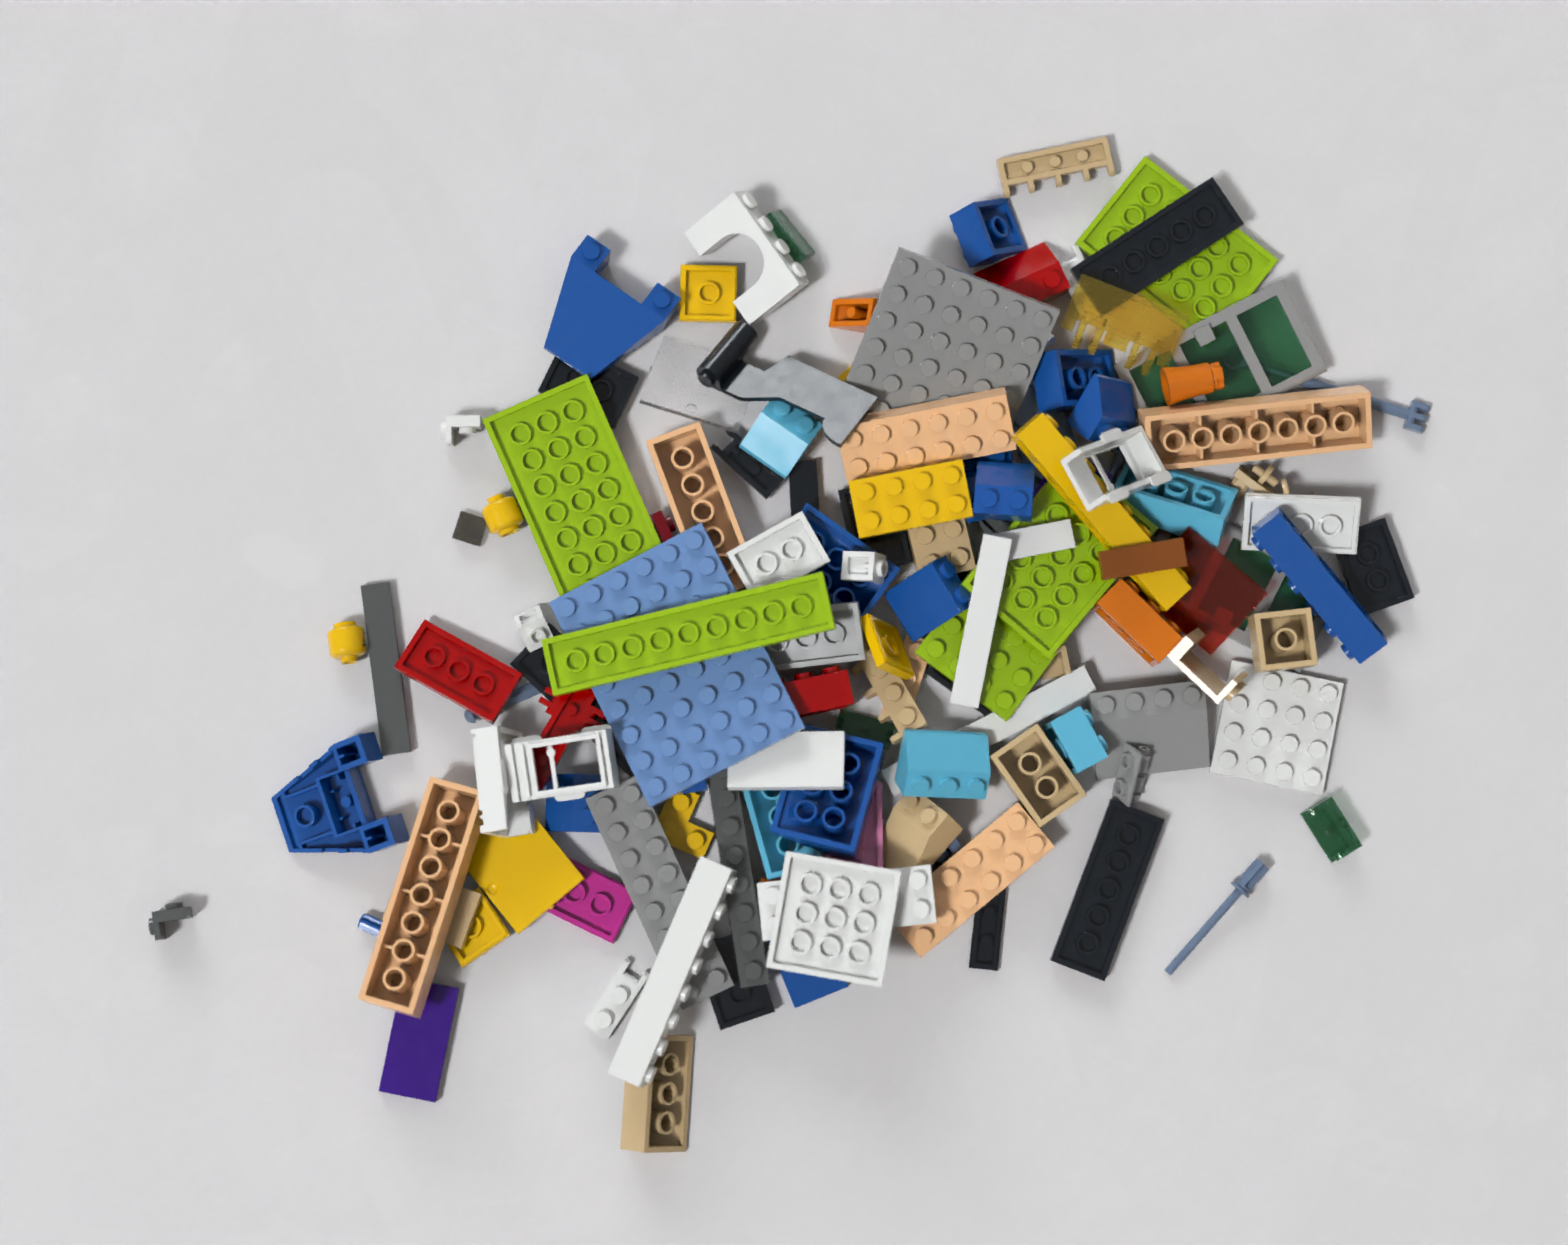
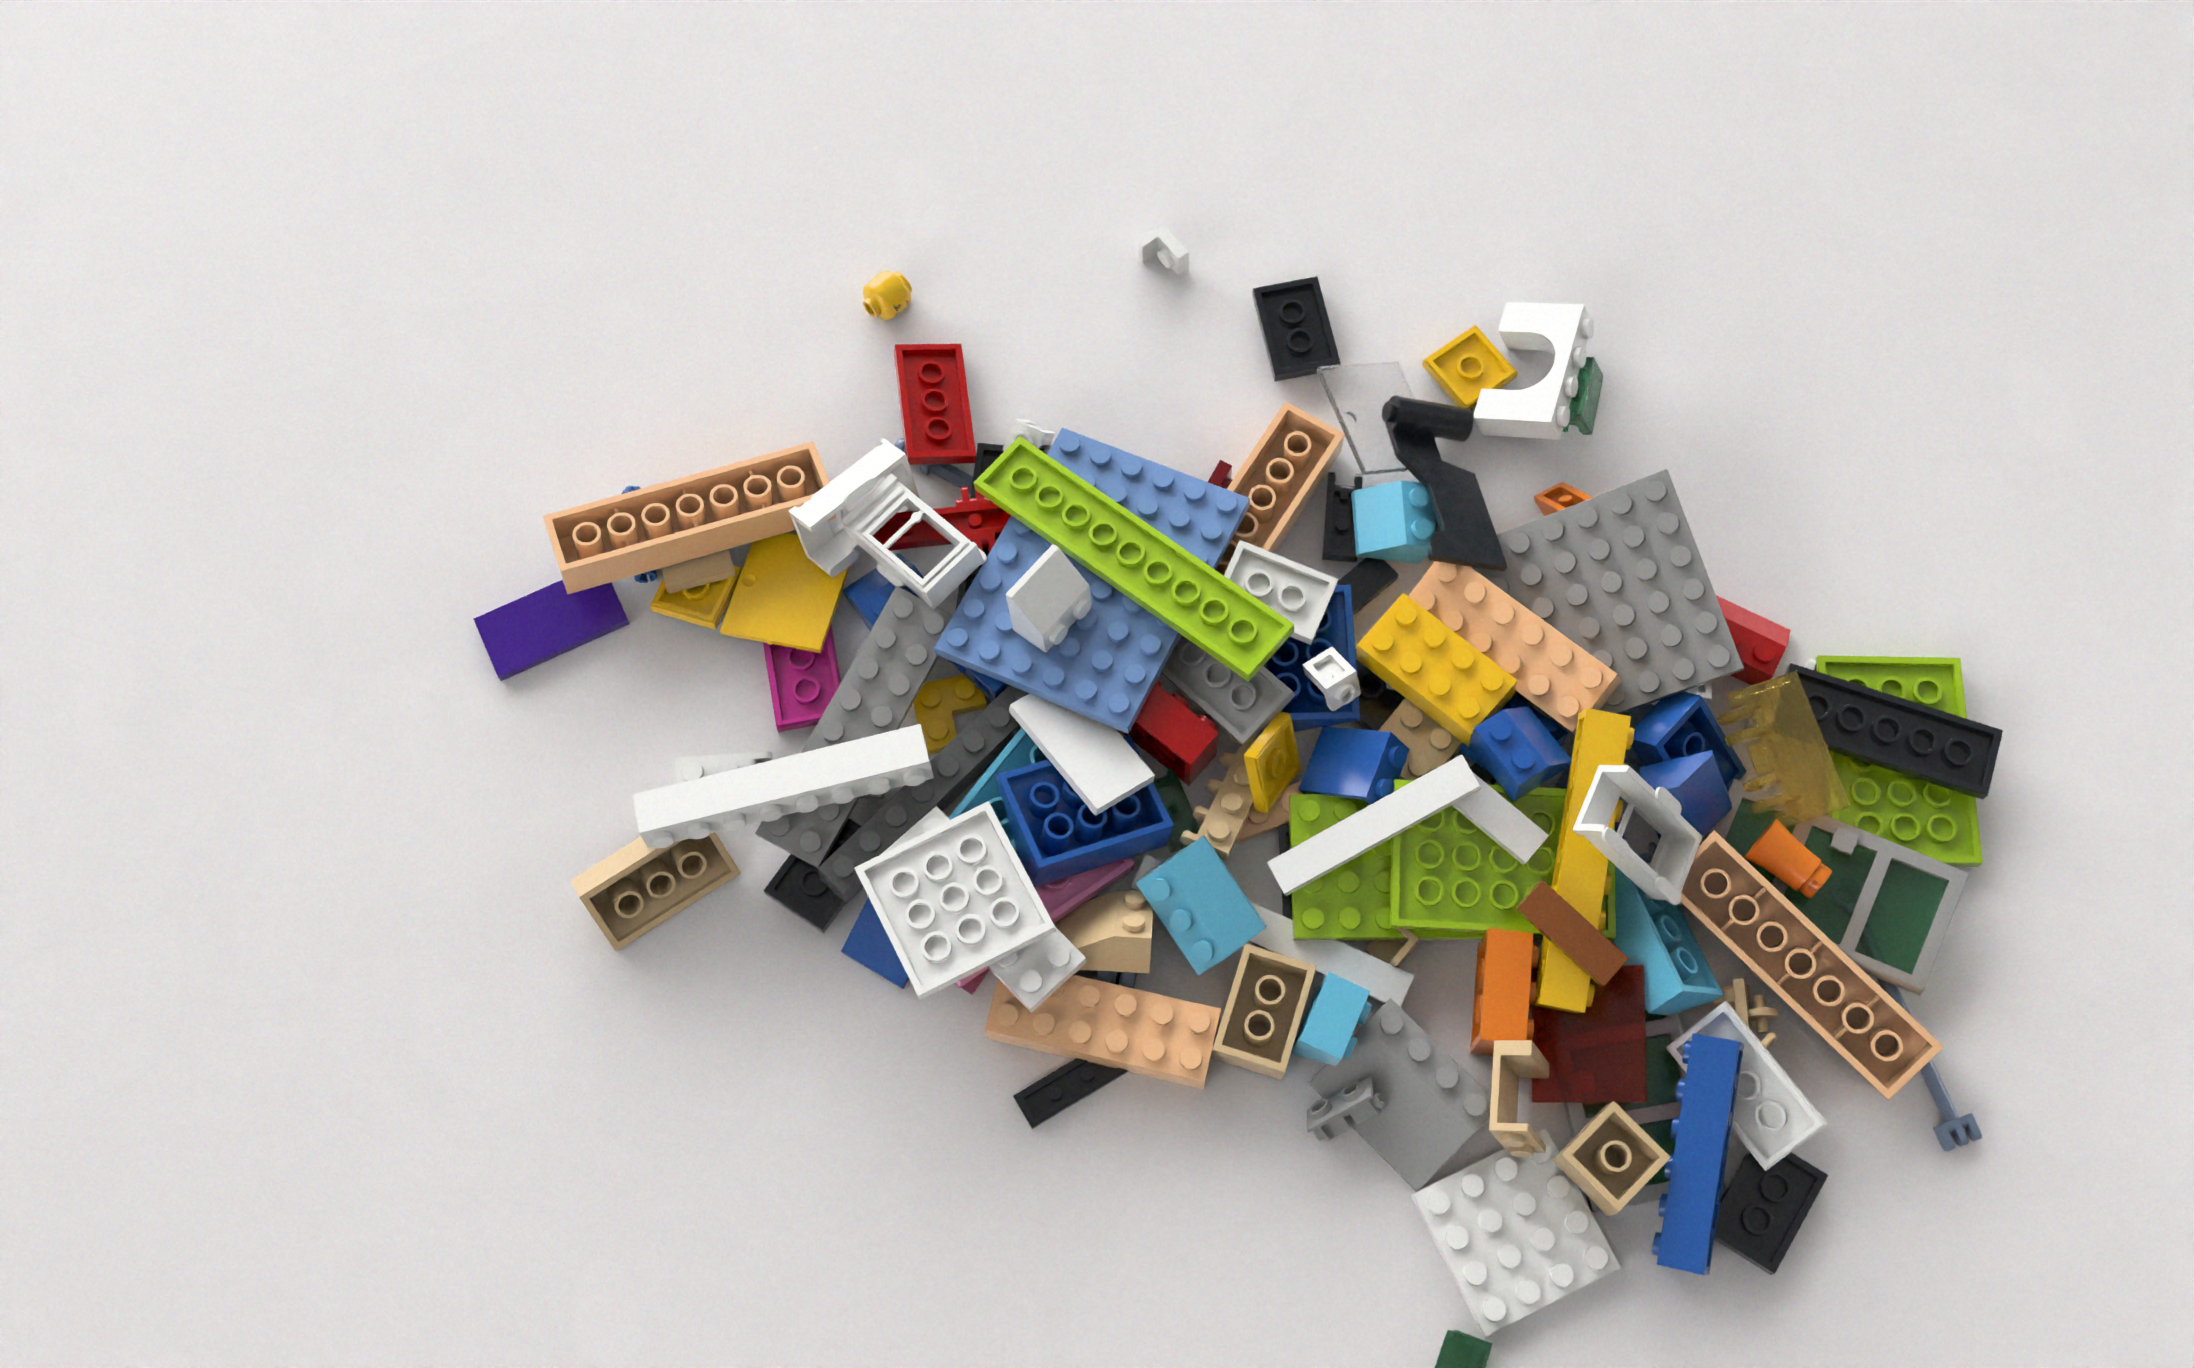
camera: 60 degrees right, 15 degrees down
(173, 912) = (505, 319): dark grey bracket -> none
(331, 807) = (725, 385): blue wedge -> none
(386, 680) = (877, 355): dark grey tile -> none
(470, 529) = (1077, 326): clear smoke tile -> none
(502, 515) = (1112, 339): yellow head -> none
(572, 483) = (1194, 370): lime plate -> none
(597, 320) = (1364, 290): blue wedge -> none
(685, 713) = (1048, 600): none -> white slope
(987, 232) = (1753, 568): blue slope -> none
(1054, 164) = (1873, 583): tan hinge -> none
(1107, 889) = (1203, 1178): black plate -> none
(1243, 886) = (1322, 1323): sand blue piece -> none

